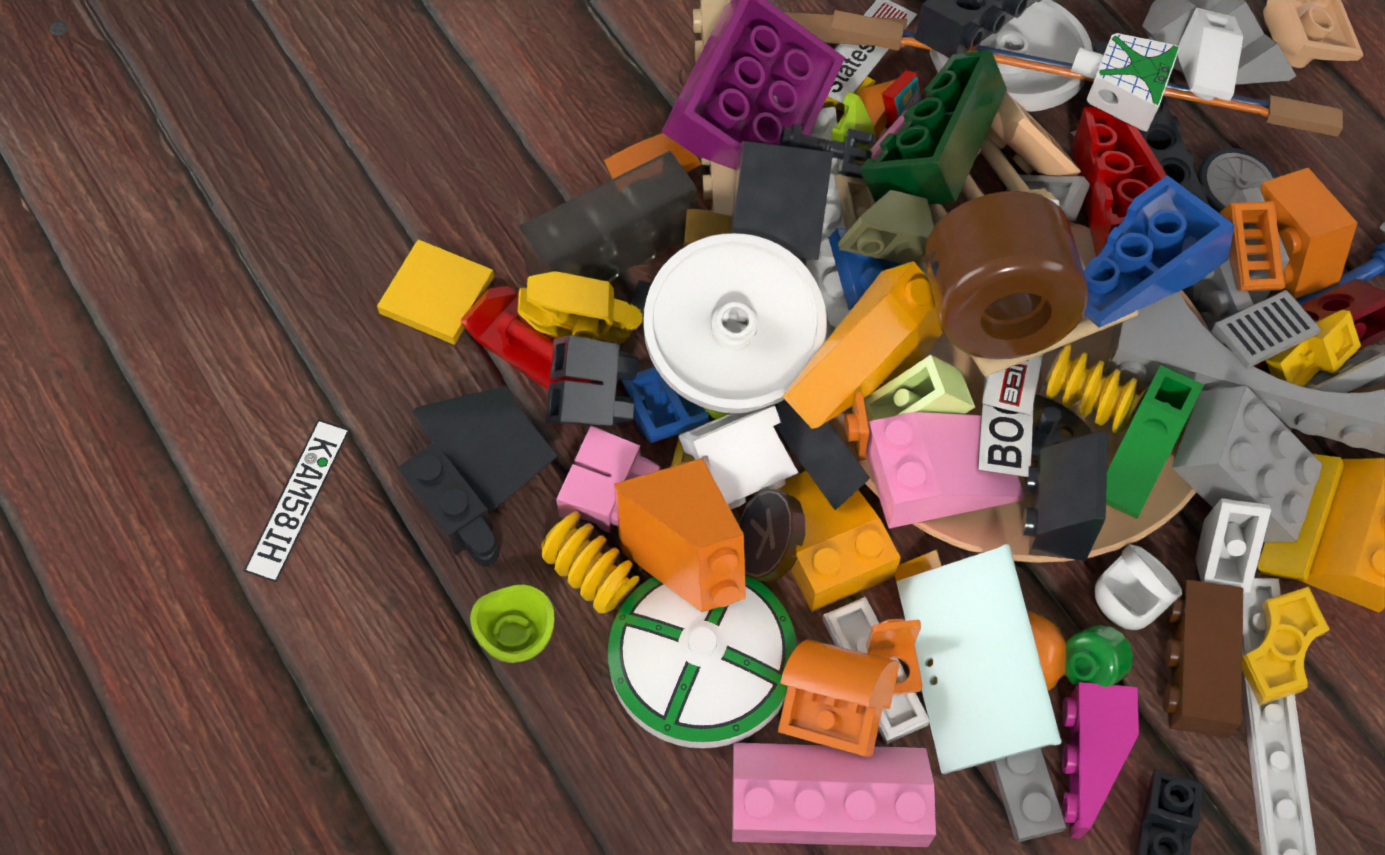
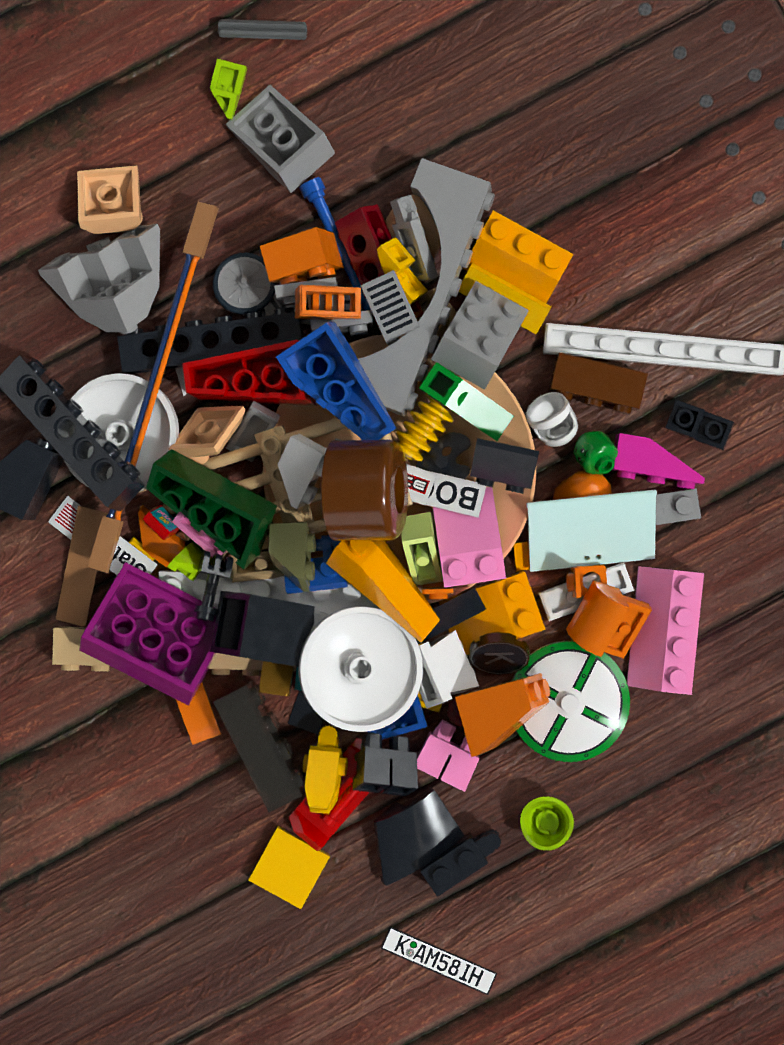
camera: 85 degrees left, 25 degrees up
(587, 565) = (505, 772): yellow piece -> none
(1128, 77) = (172, 360): white torso -> none
(1211, 54) = (157, 295): white slope -> none
(1232, 543) = (533, 355): white slope -> none
(1278, 663) = (606, 338): yellow tile -> none

